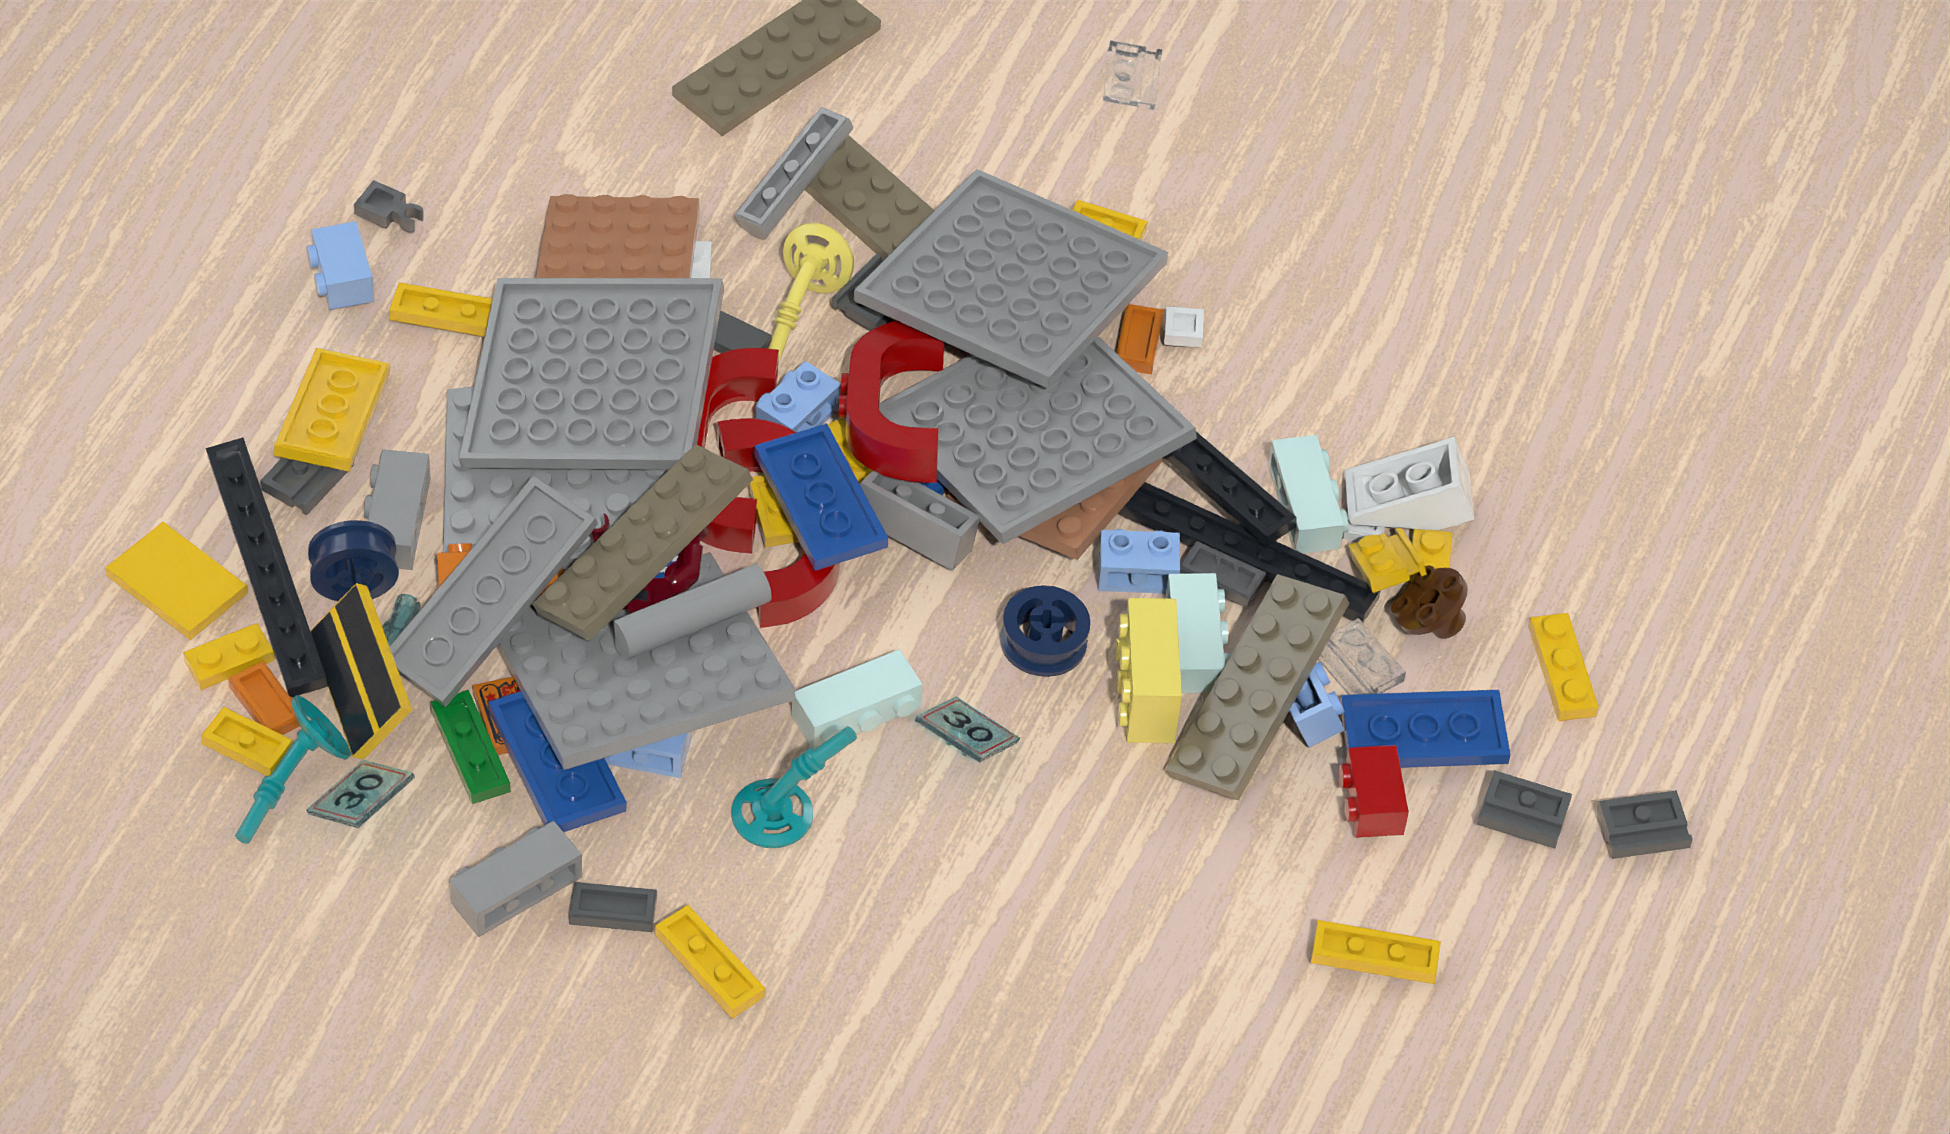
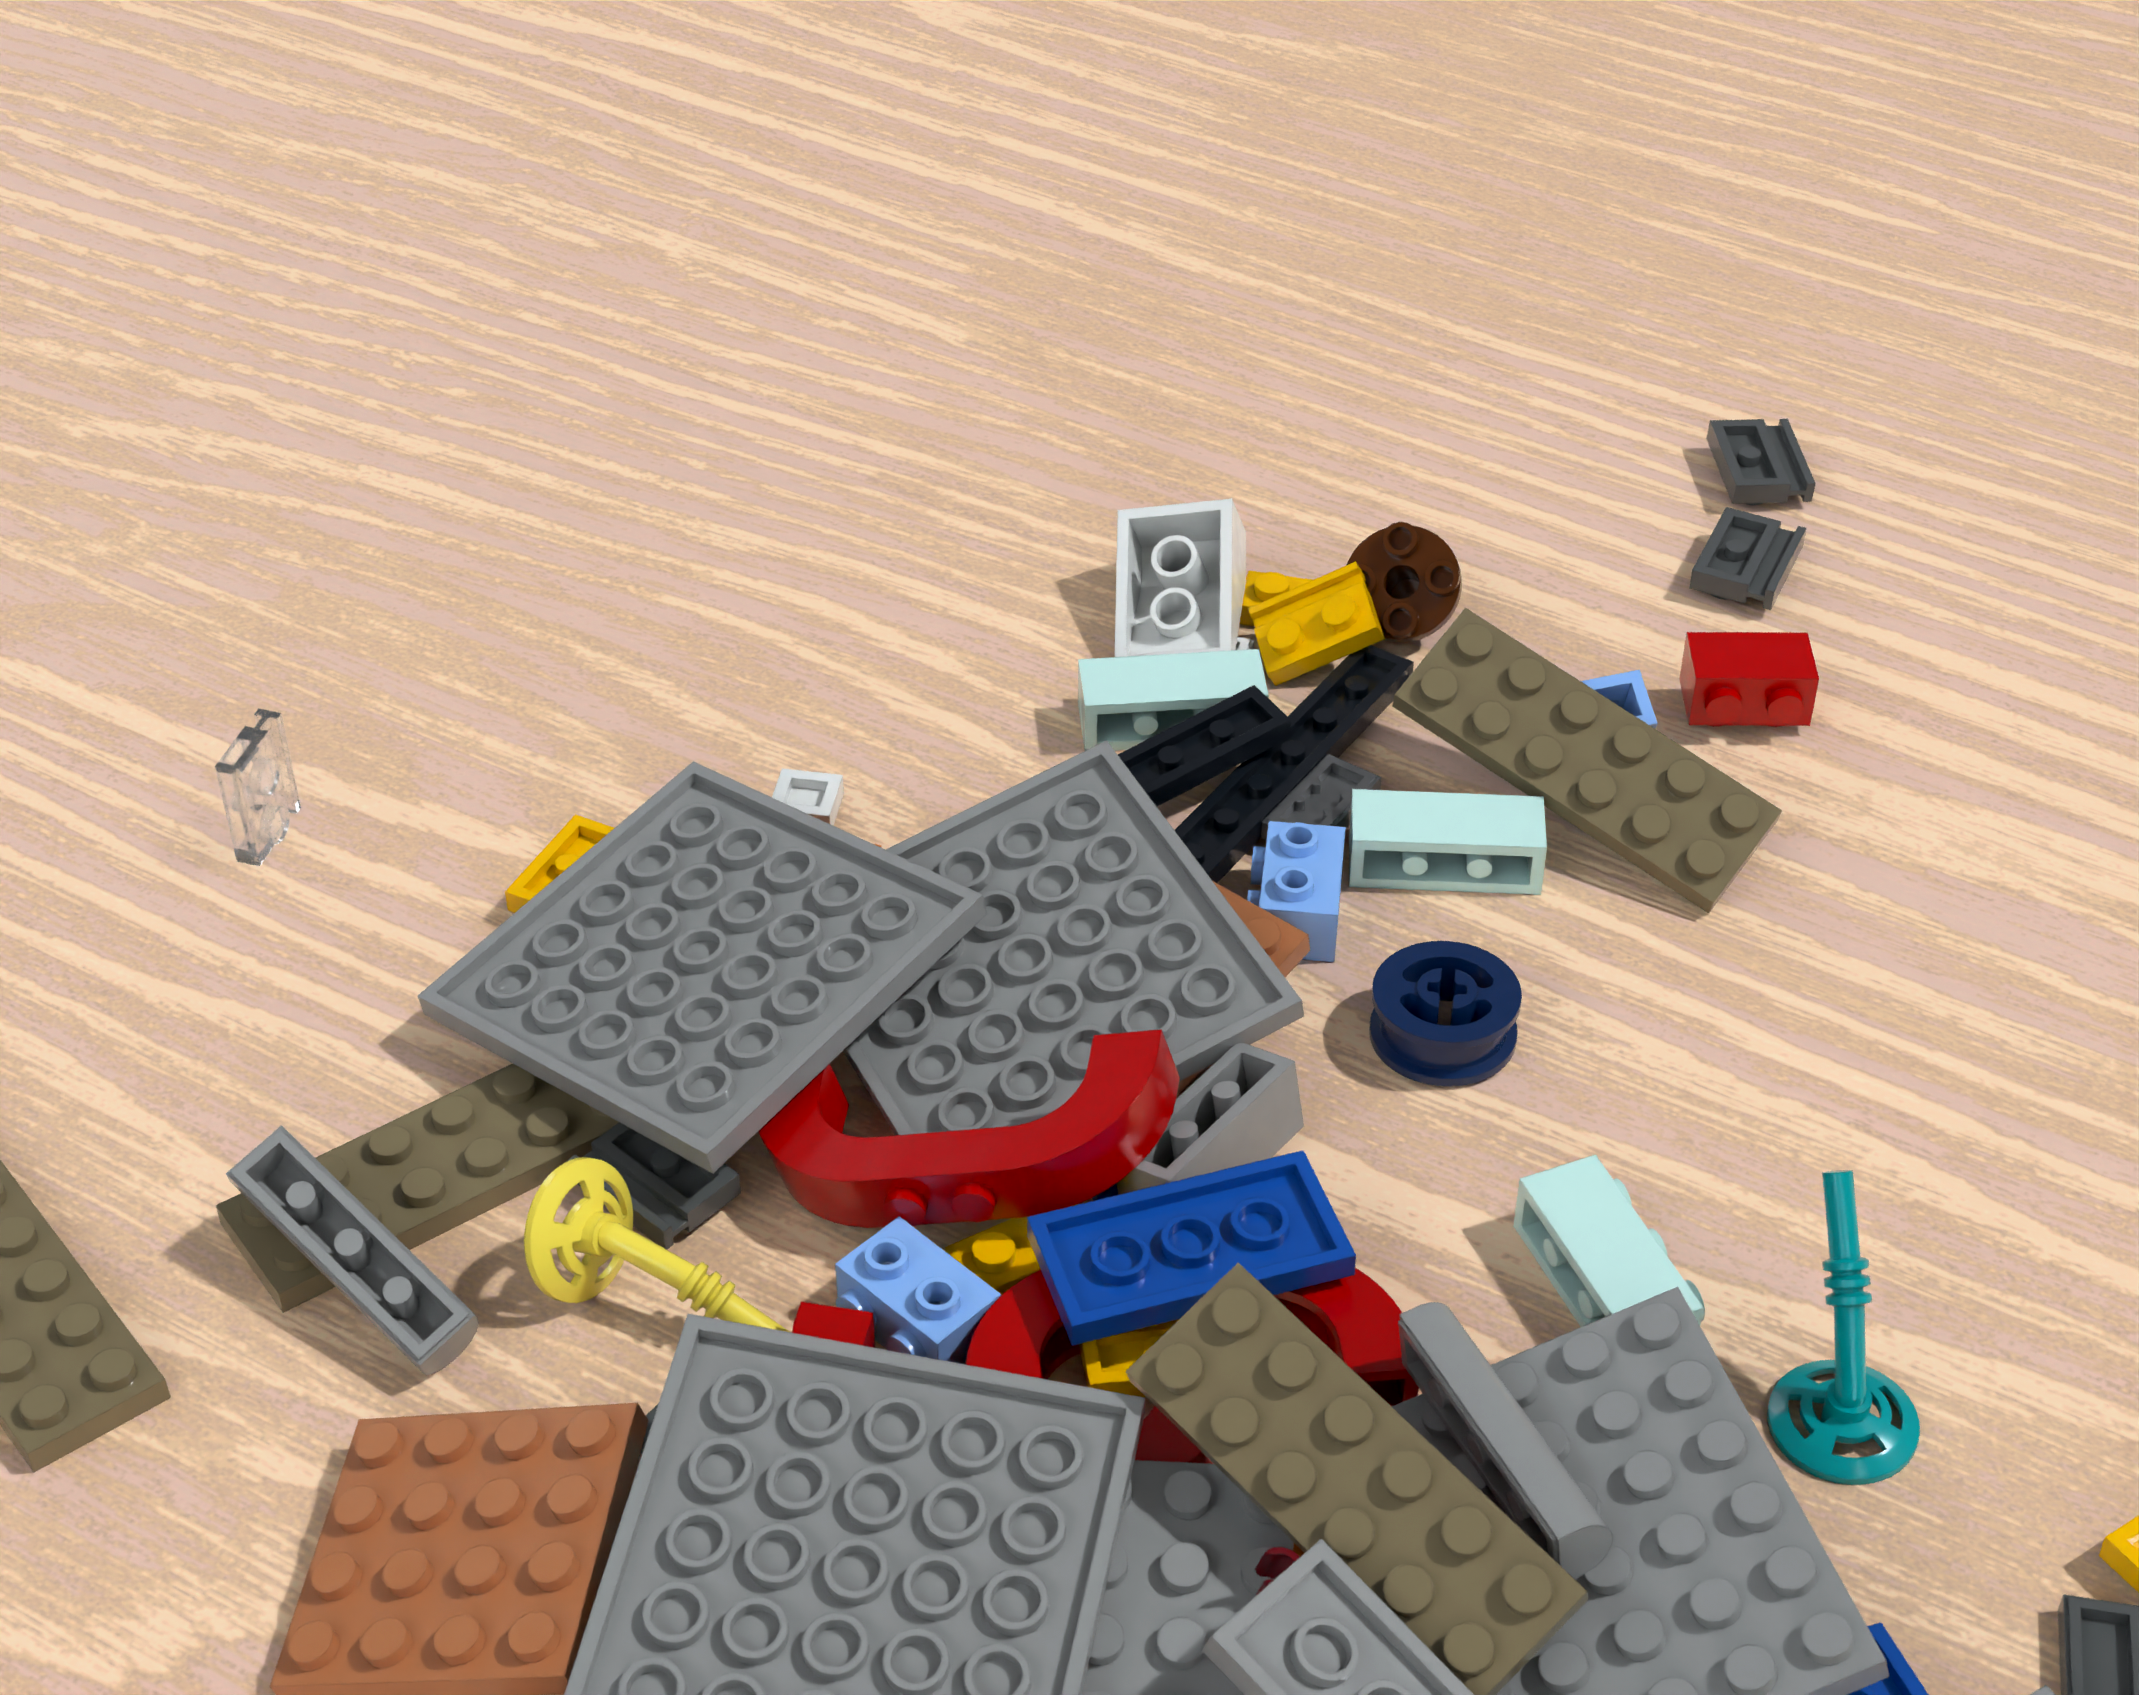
camera: 80 degrees left, 10 degrees down
(967, 729) = (1665, 1121): clear light blue piece -> none
(1149, 670) = (1552, 875): light yellow brick -> none
(1376, 952) = (2023, 720): yellow plate -> none
(1430, 726) = (1617, 618): blue plate -> none
(1563, 666) = (1486, 504): yellow plate -> none

